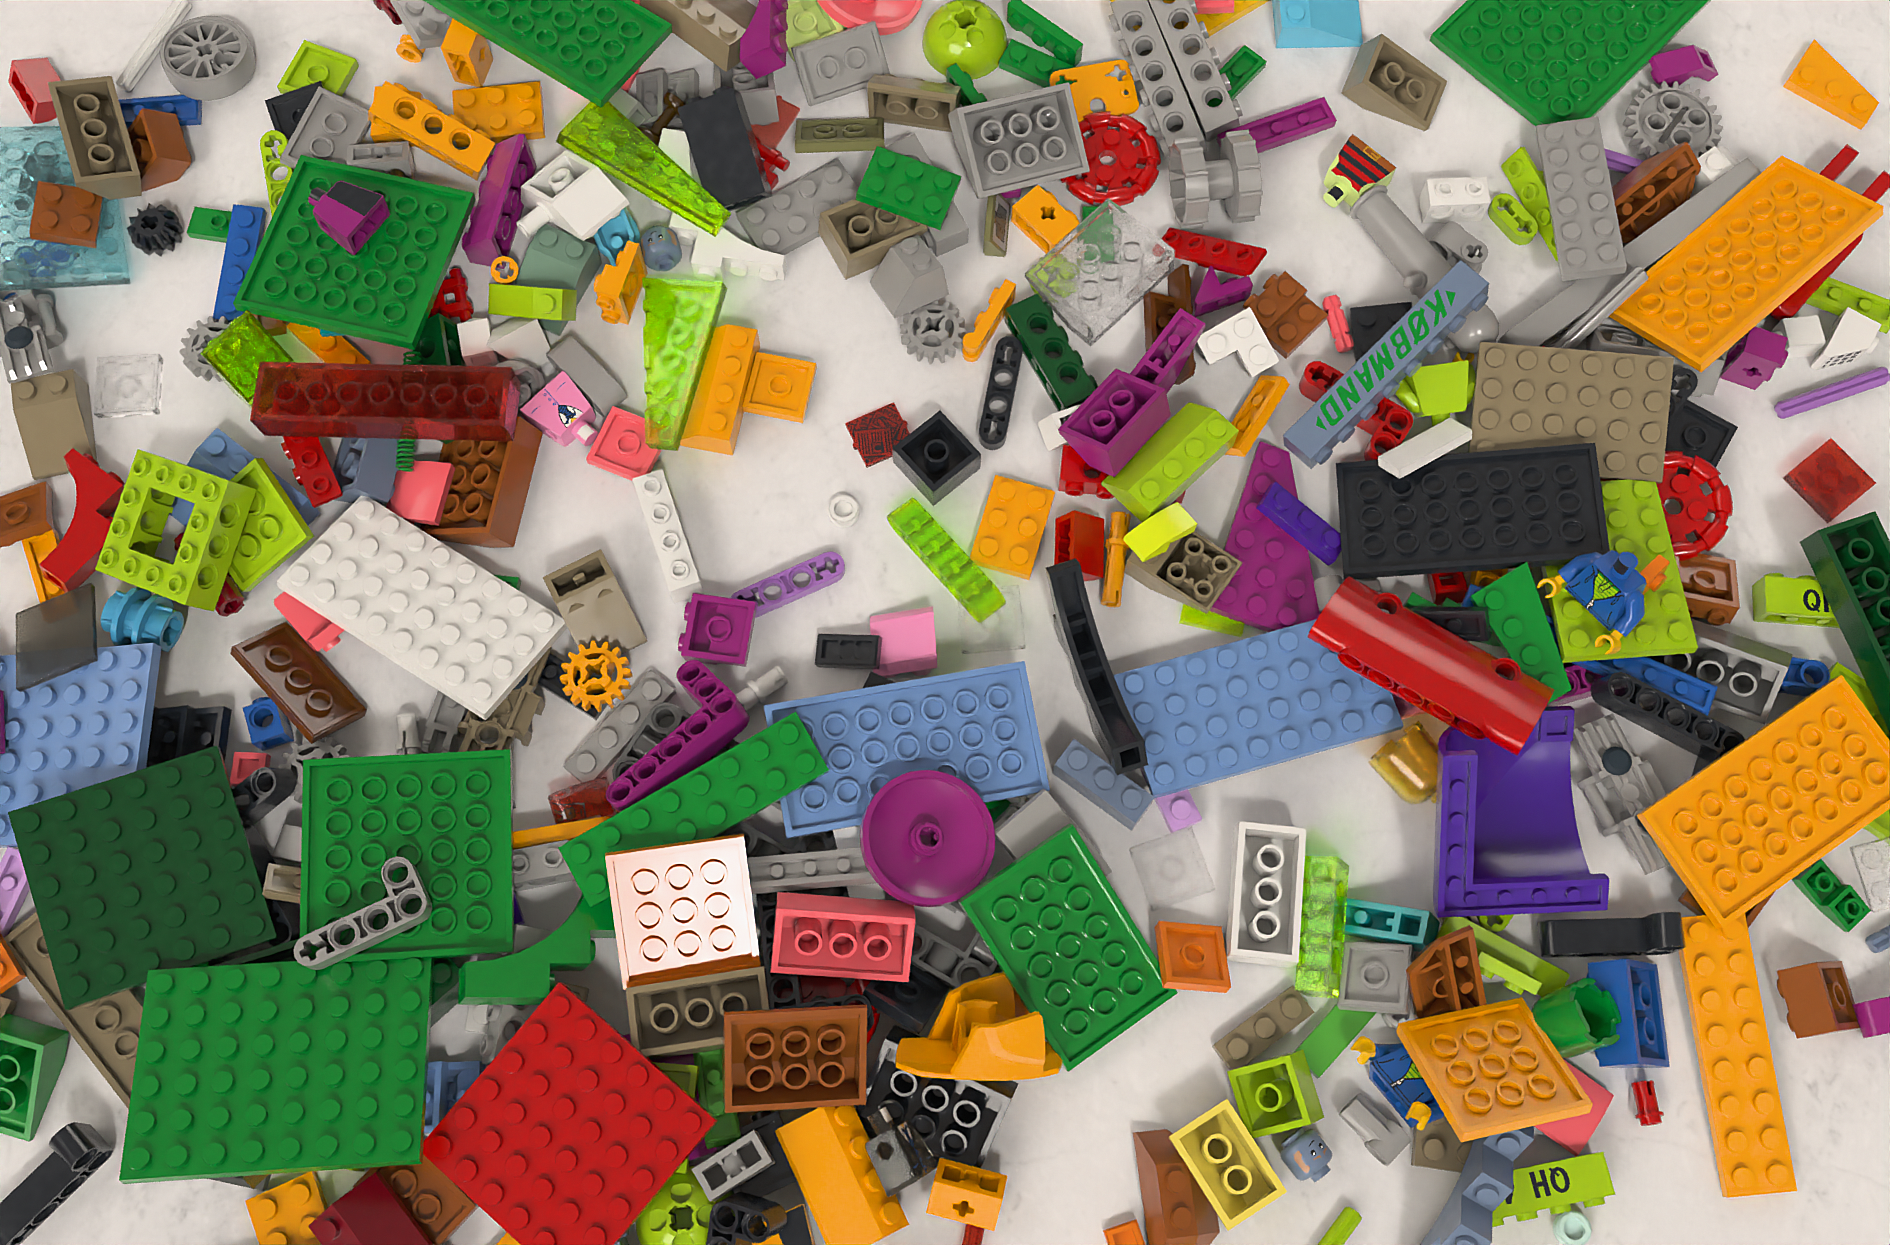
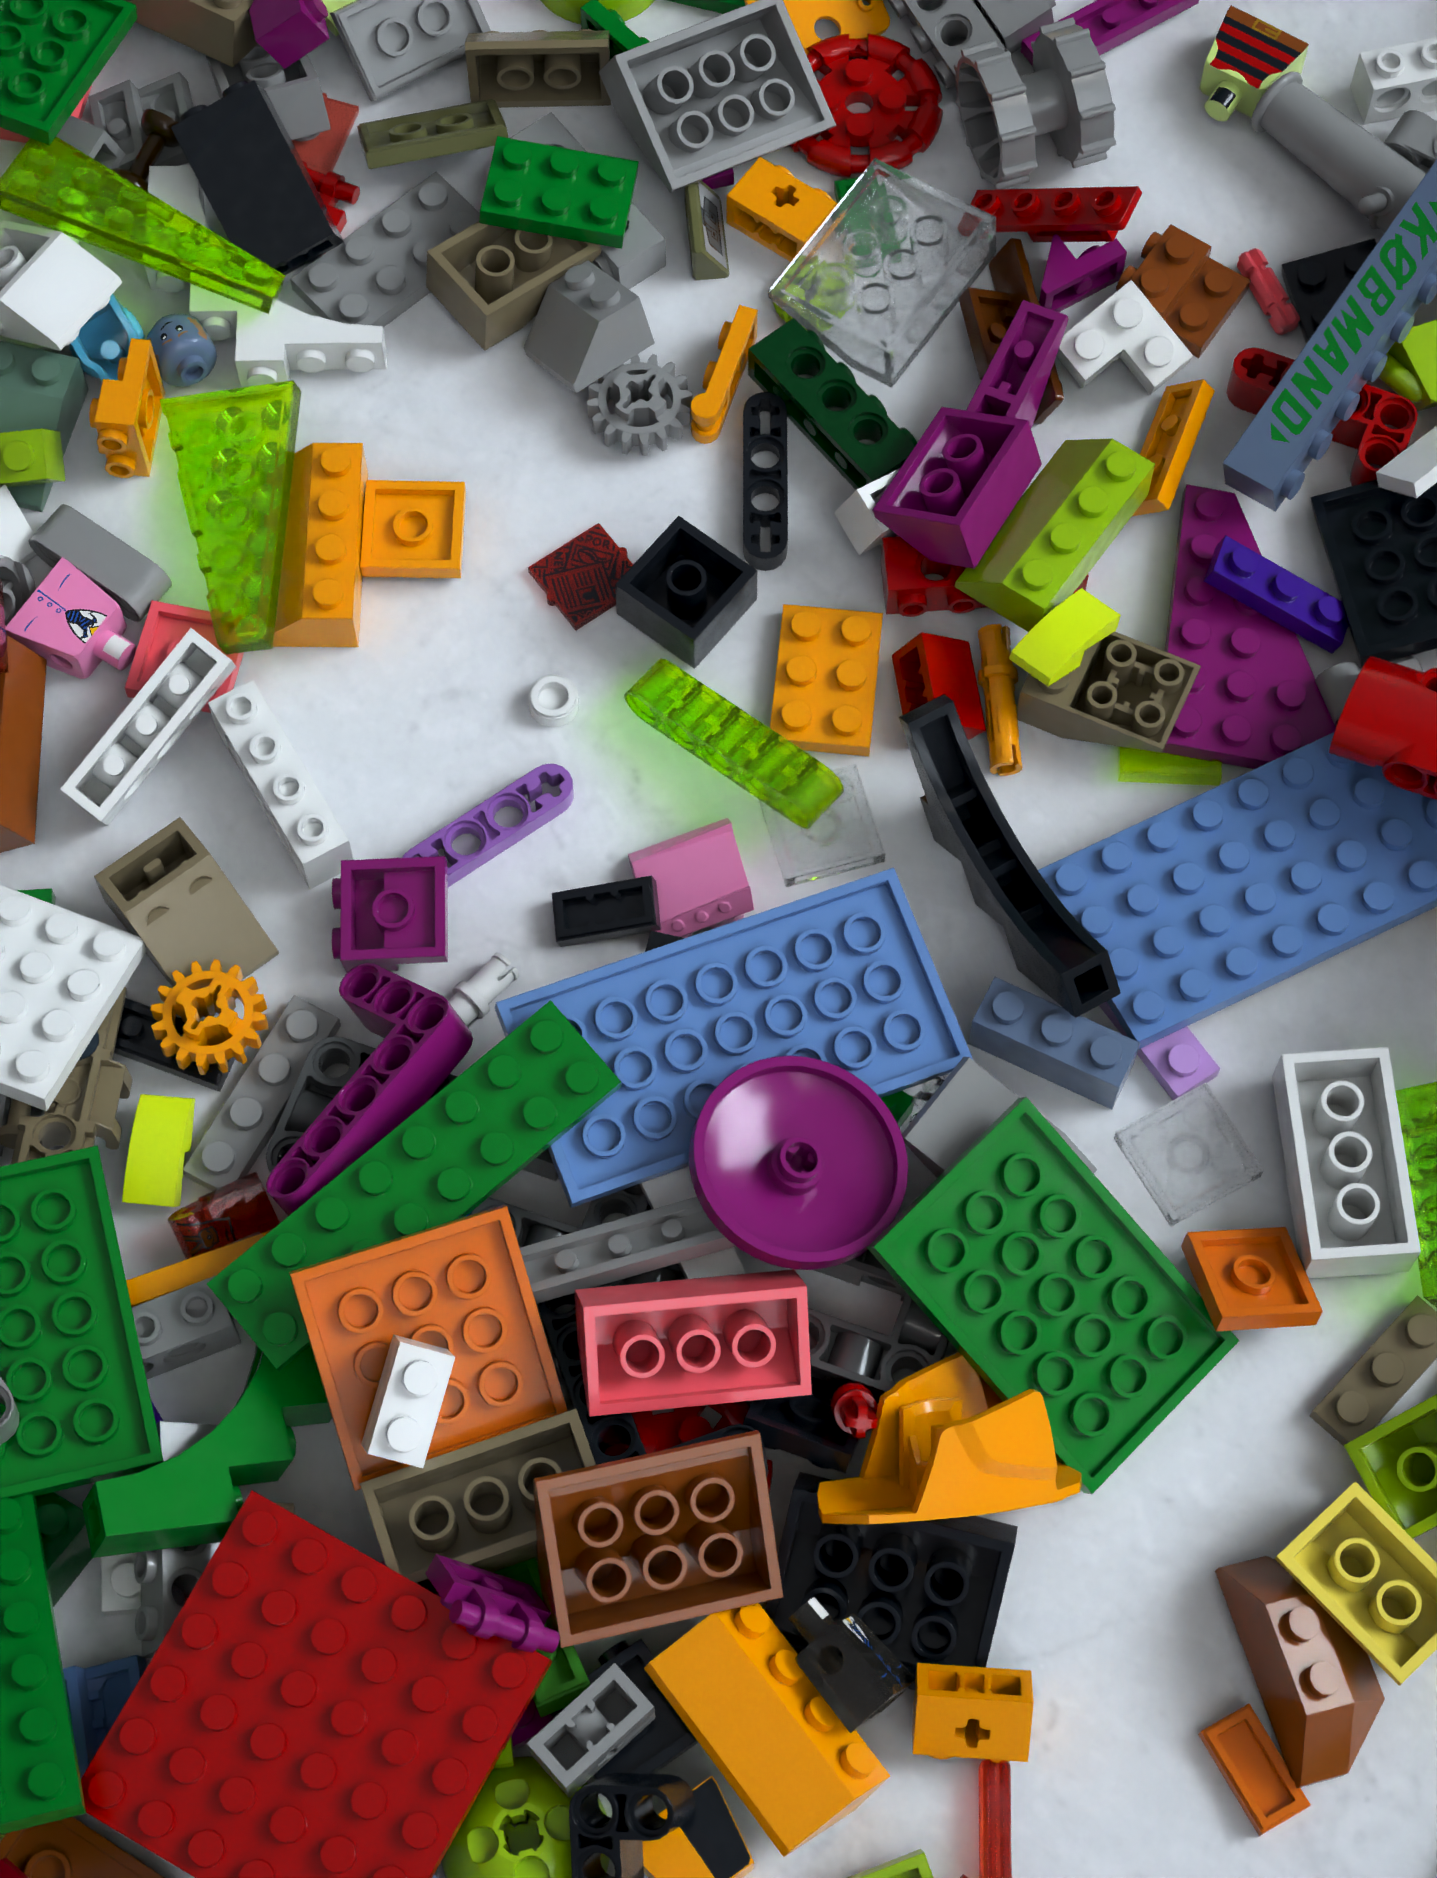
camera: 10 degrees left, 5 degrees down
(550, 752) = (157, 1150): none -> neon yellow slope
(593, 488) = (148, 727): none -> white brick
(662, 945) = (408, 1401): none -> white brick
(688, 1079) = (492, 1605): none -> magenta plate
(932, 995) = (854, 1409): none -> red axle

